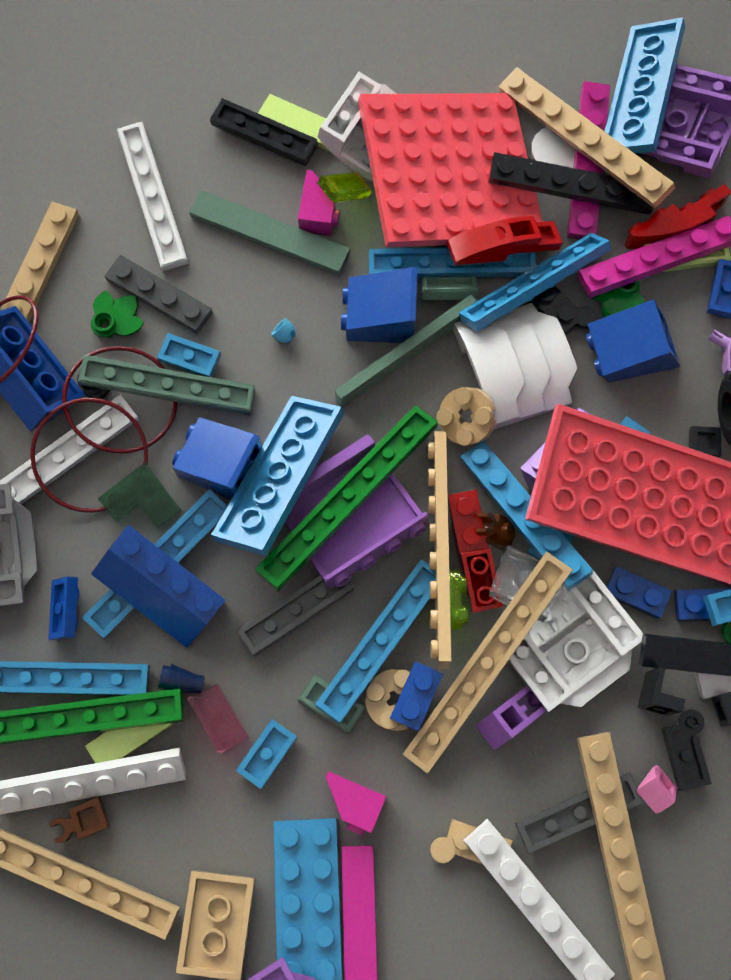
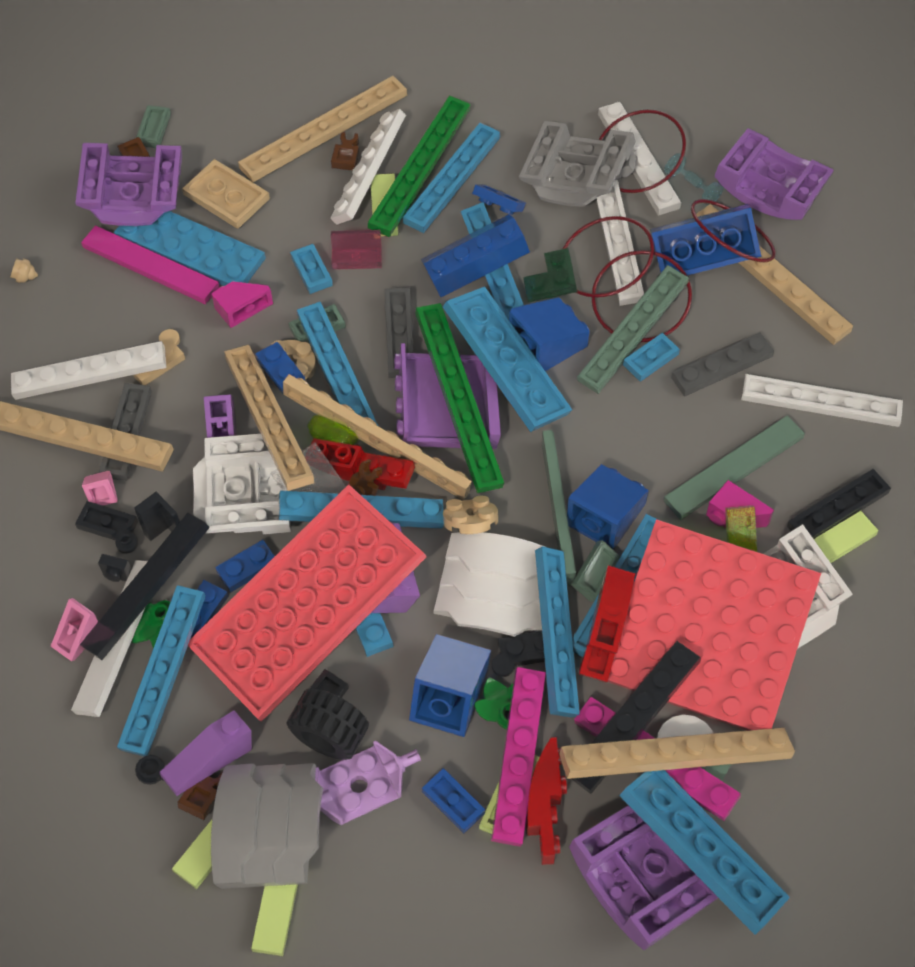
camera: 120 degrees right, 15 degrees down
(118, 313) = (720, 329): green plate -> none
(178, 678) = (400, 240): dark blue cone -> none
(284, 331) = (633, 431): medium azure hinge -> none

